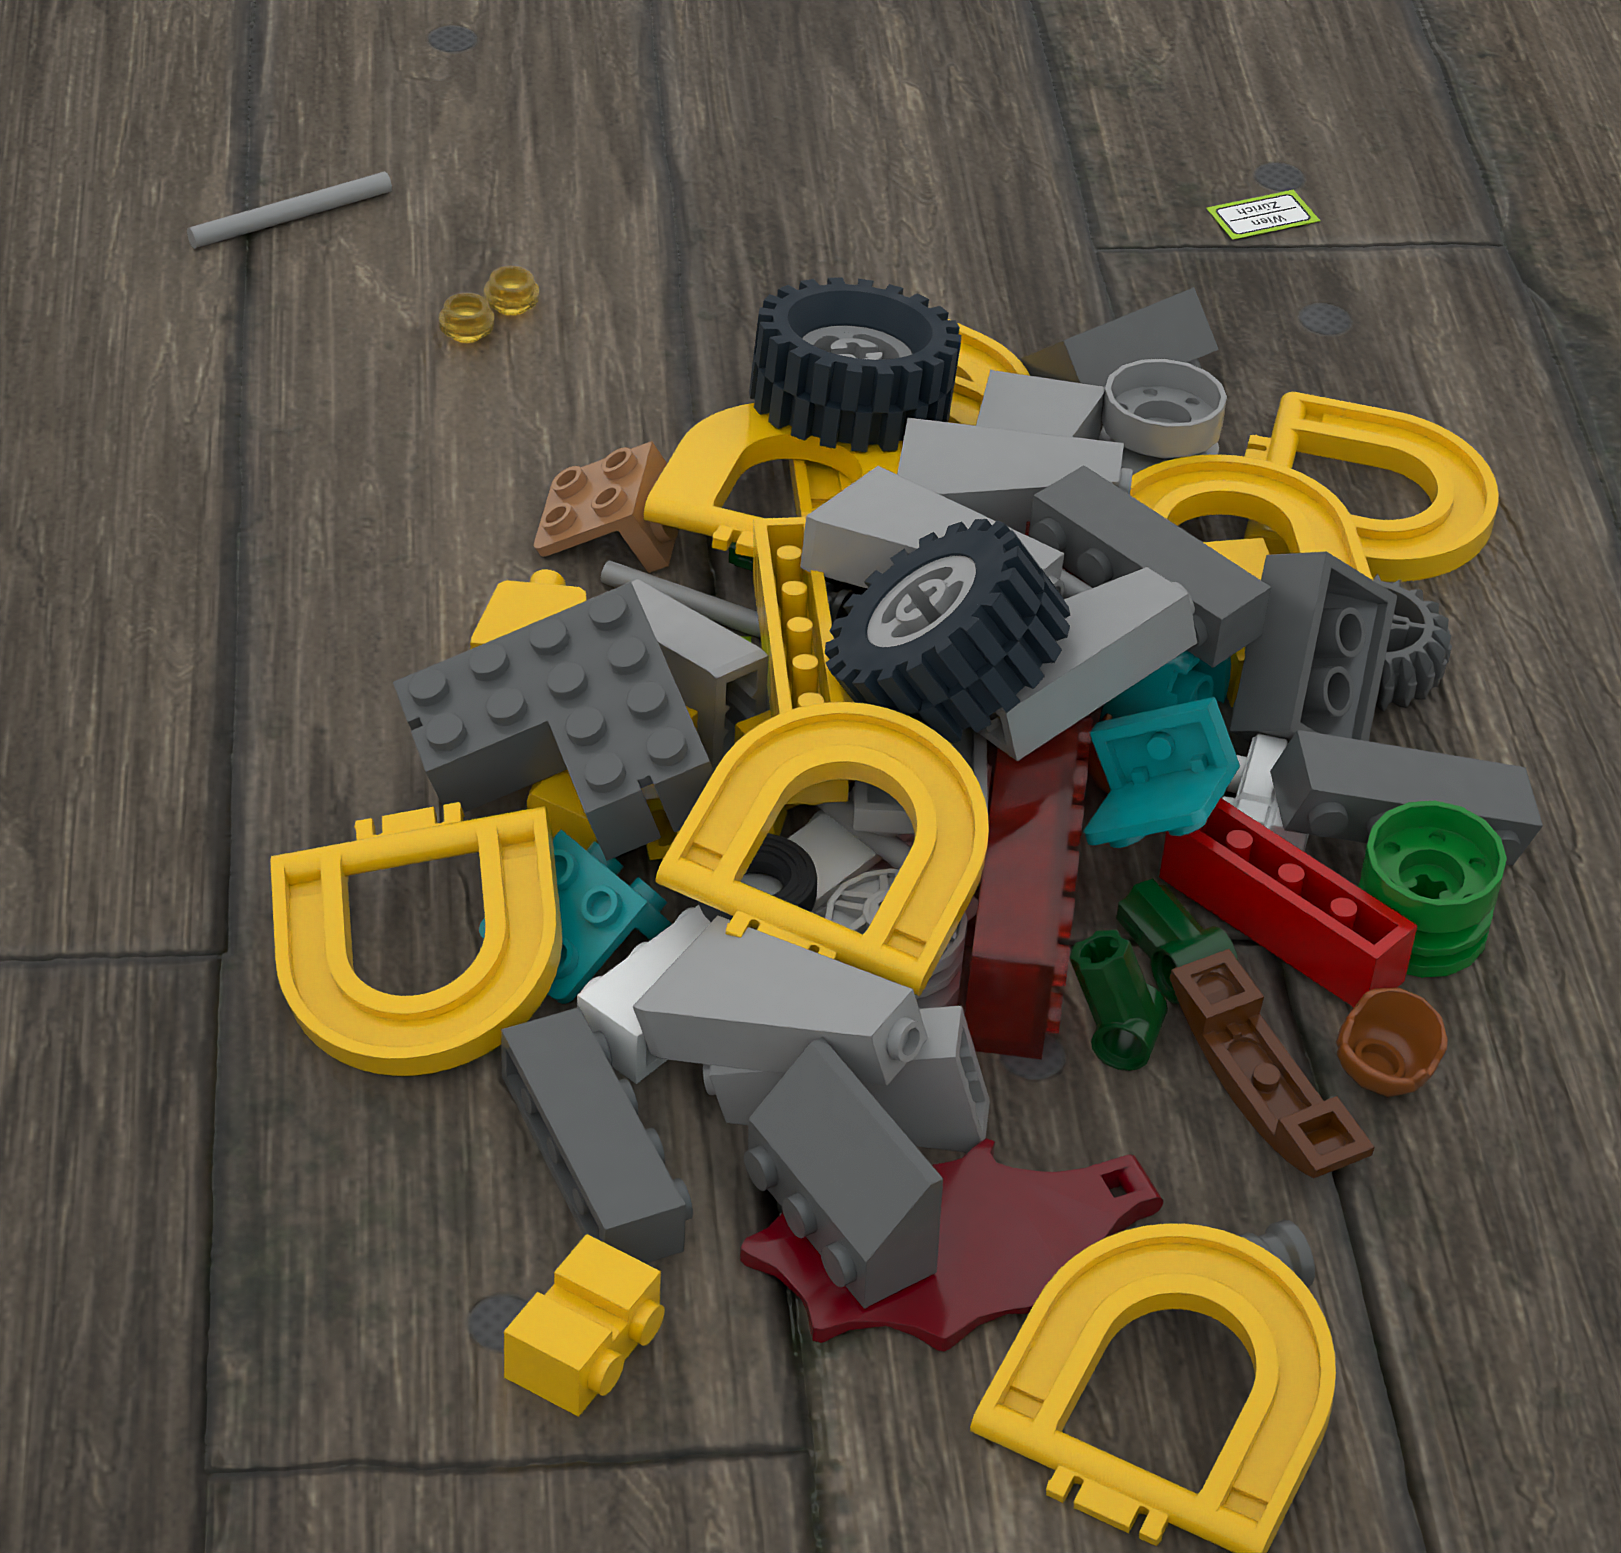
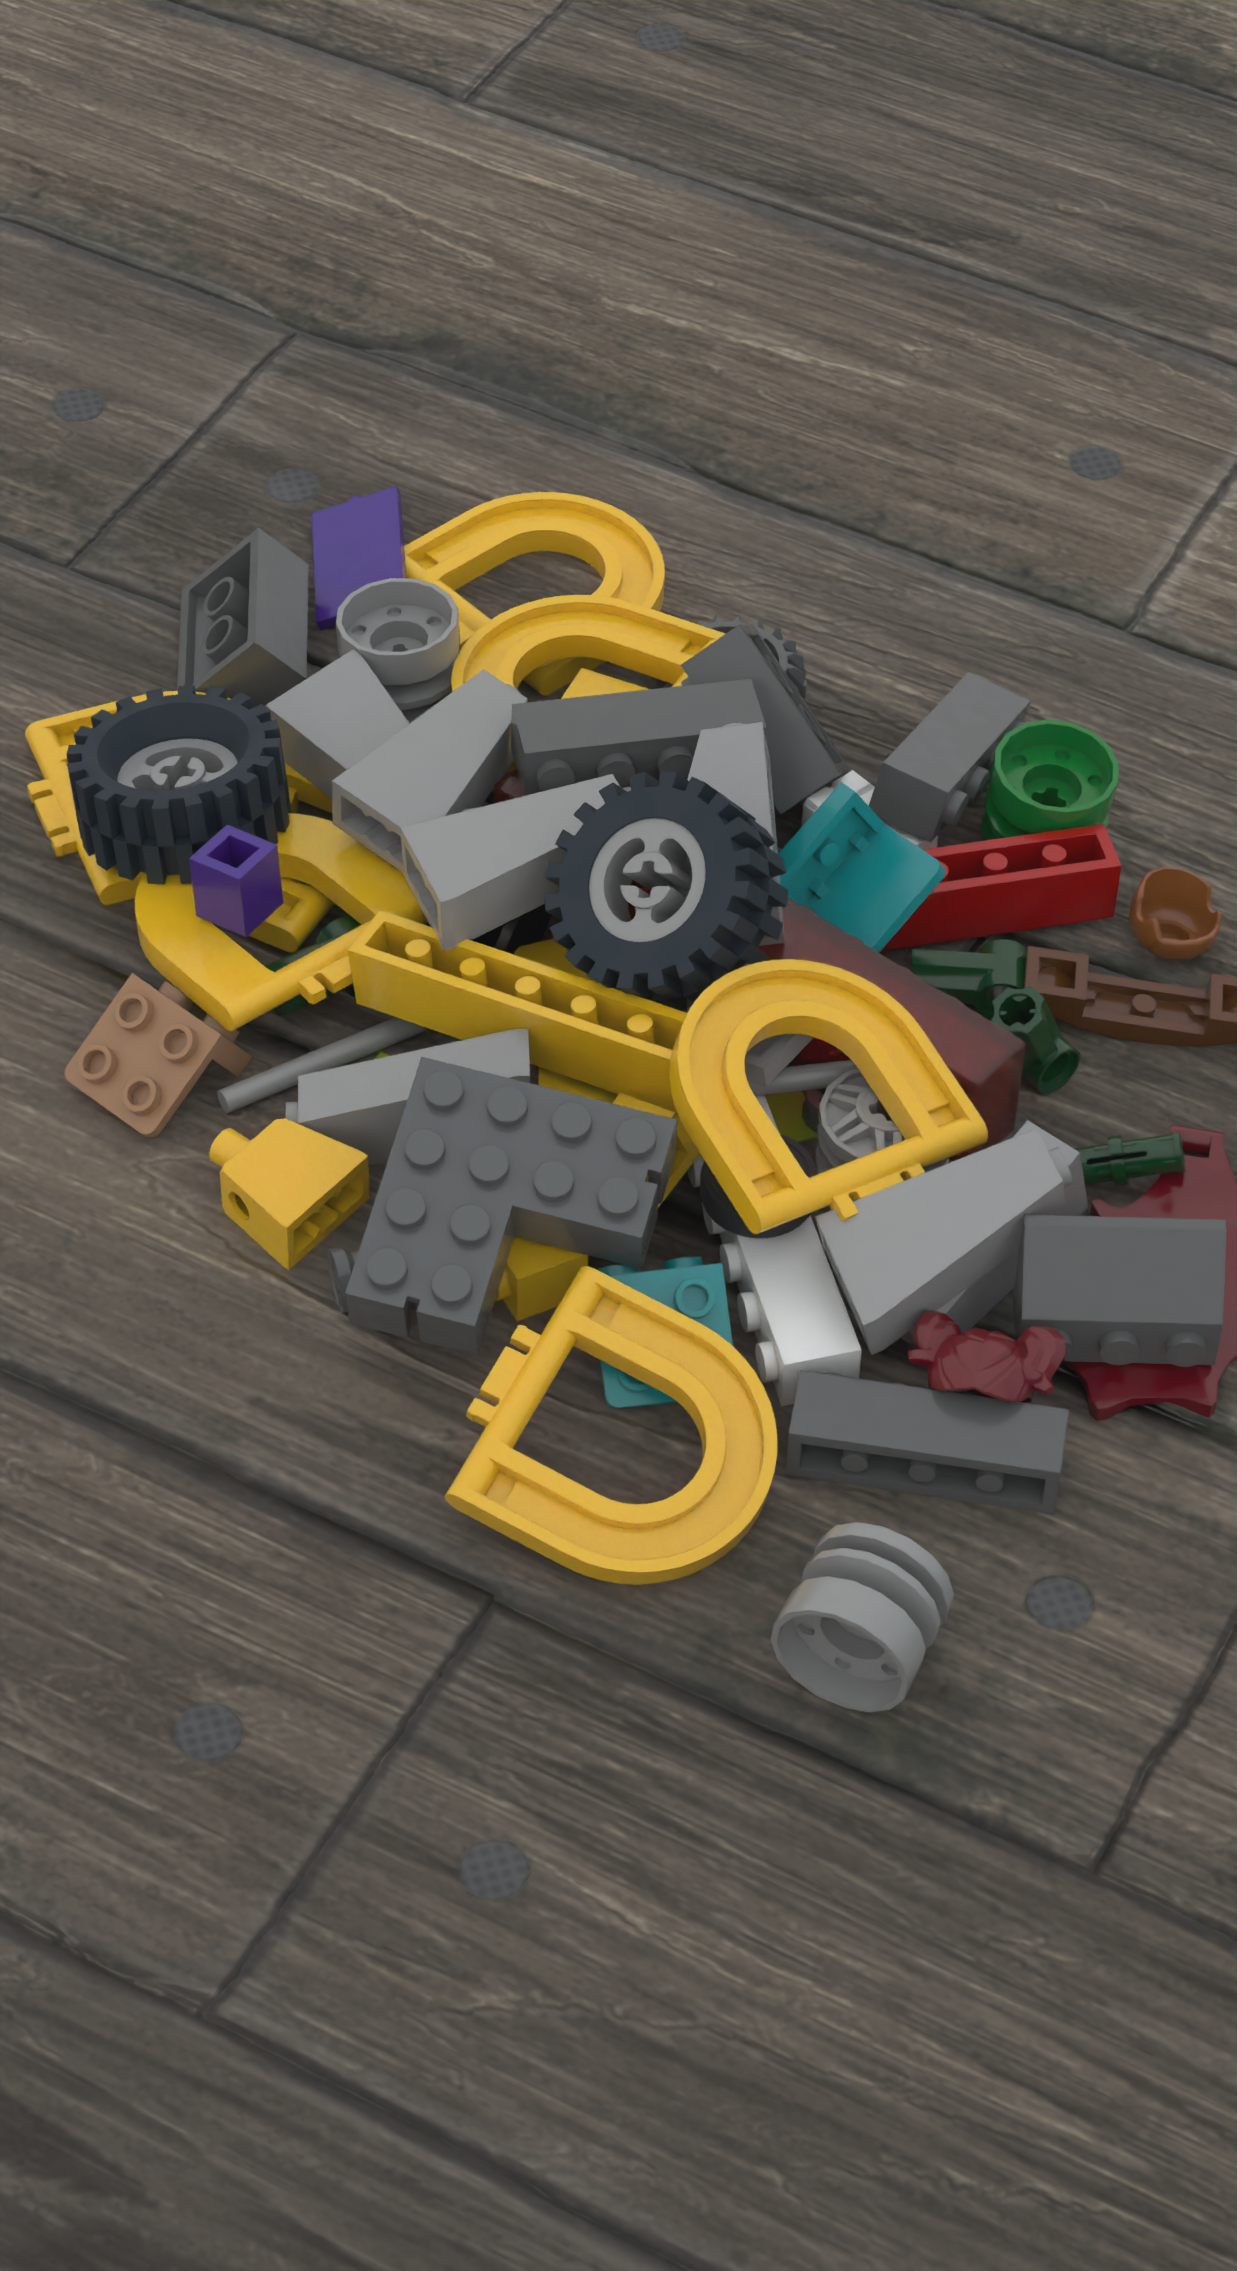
camera: 55 degrees left, 5 degrees up
(332, 1162) = (862, 1617): none -> light grey wheel
(584, 1327) = (1121, 1545): yellow brick -> none
(685, 1122) = (985, 1360): none -> dark red hair
(768, 430) = (236, 880): none -> dark purple brick
(1067, 1147) = (1132, 1158): none -> dark green pin
(1263, 214) = (121, 443): sticker -> none
(1283, 376) = (356, 547): none -> dark purple piece

